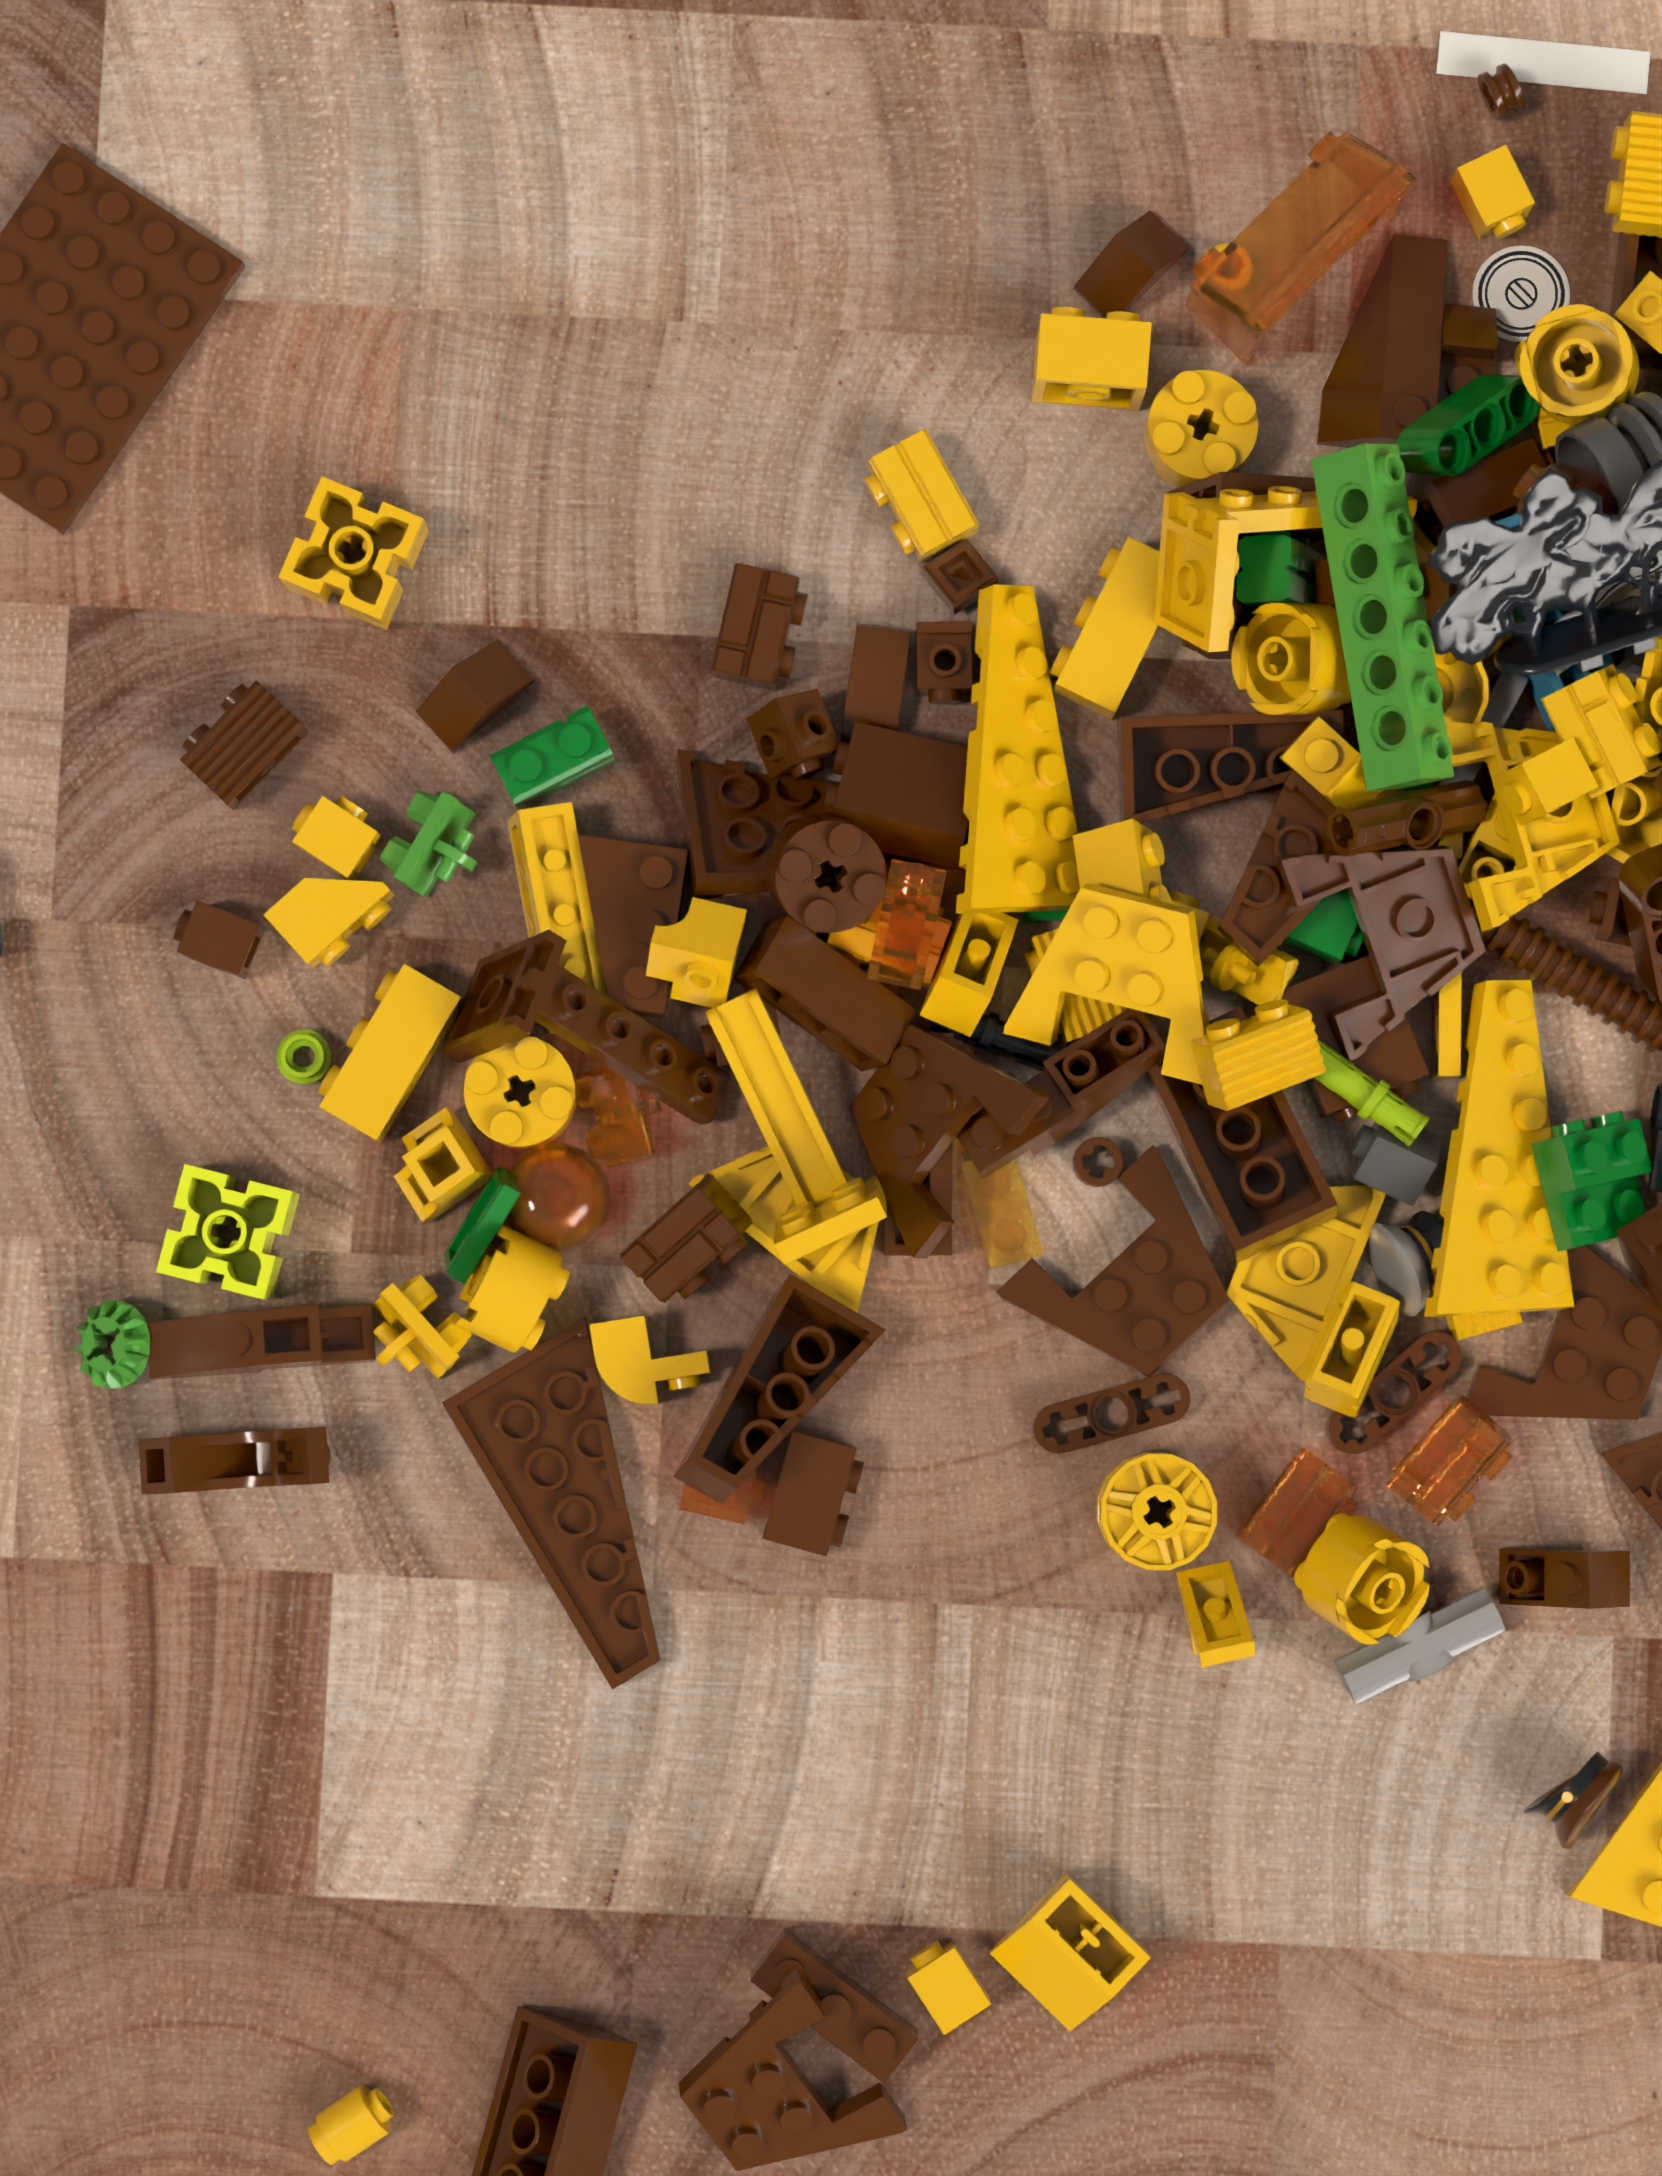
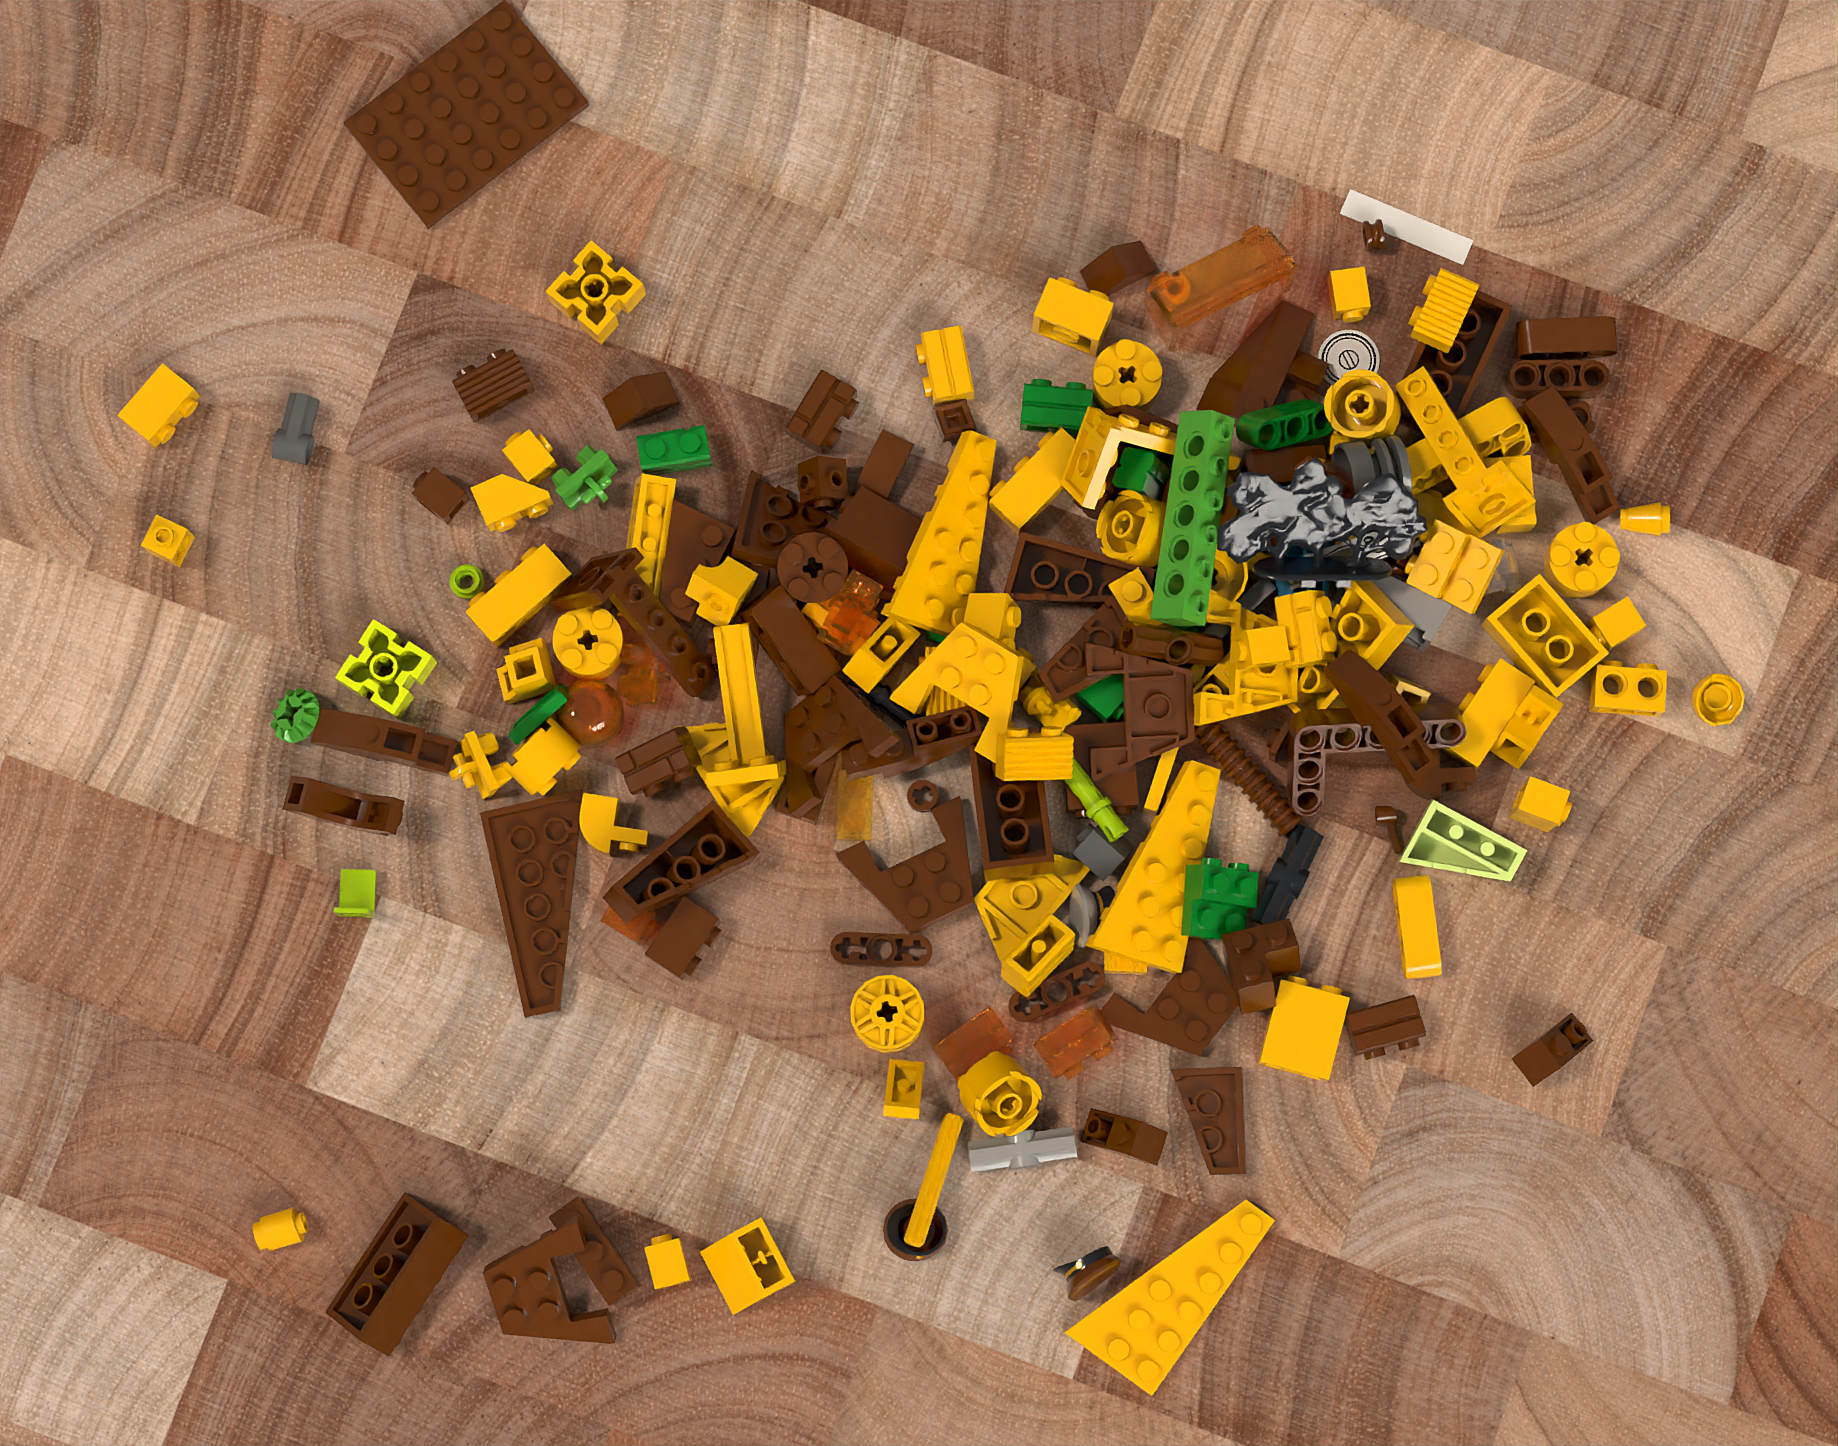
camera: 20 degrees right, 5 degrees down
(297, 1583) = (357, 893): none -> lime bracket
(940, 637) = (930, 452): reddish brown brick -> none
(1106, 508) = (1053, 407): none -> green brick
(1297, 1815) = (896, 1227): none -> reddish brown piece
(1305, 1736) = (933, 1180): none -> yellow axle

